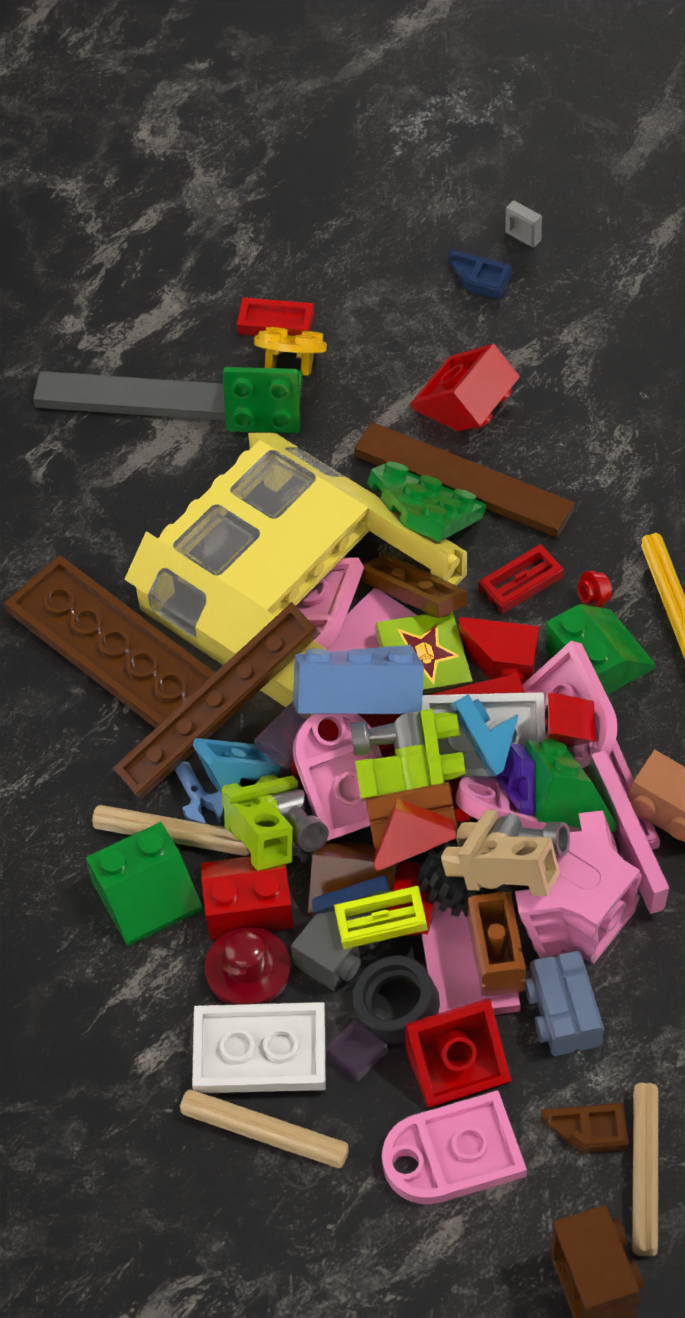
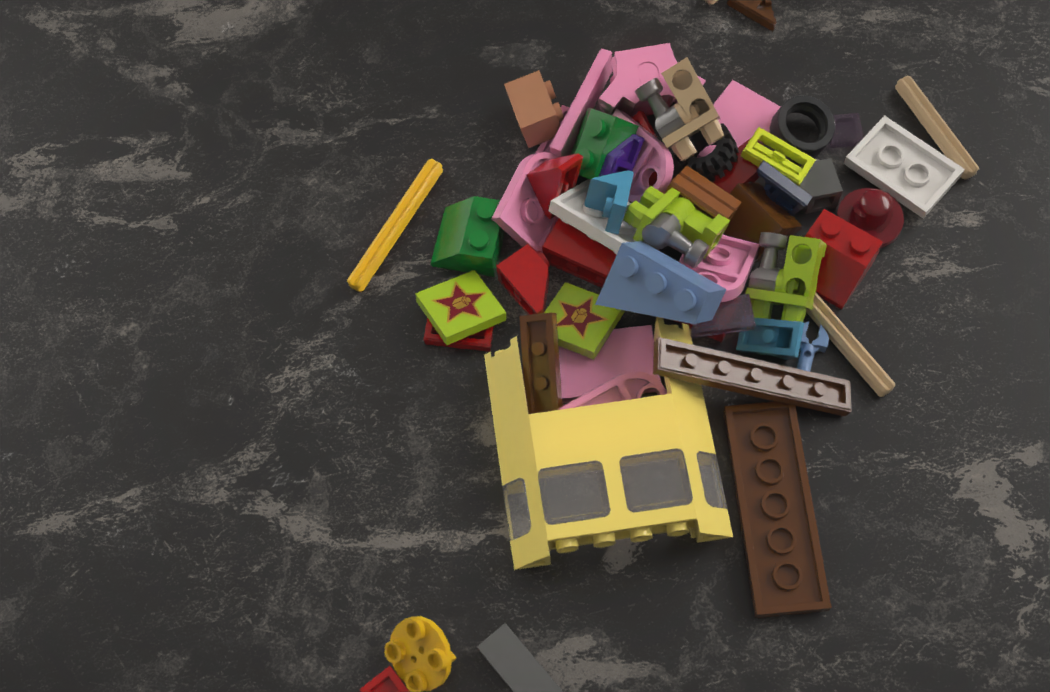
camera: 135 degrees left, 10 degrees up
(143, 883) = (895, 317): green slope -> none
(262, 399) = (484, 622): green bracket -> none
(411, 832) = (722, 172): slope -> none
(424, 502) = (471, 419): green plate -> none
(456, 1052) = (785, 79): red slope -> none
(457, 1151) = (839, 44): bright pink tile -> none
(467, 388) = (340, 502): red slope -> none
(481, 274) = (215, 604): dark blue tile -> none
(496, 944) = (731, 89): dark orange brick -> none
(500, 492) = (417, 439): reddish brown tile -> none
(523, 223) = (139, 613): light grey tile -> none
(535, 582) = (460, 307): none -> lime tile
(565, 1004) = (713, 54): sand blue brick -> none
(594, 589) = (428, 275): red plate -> none

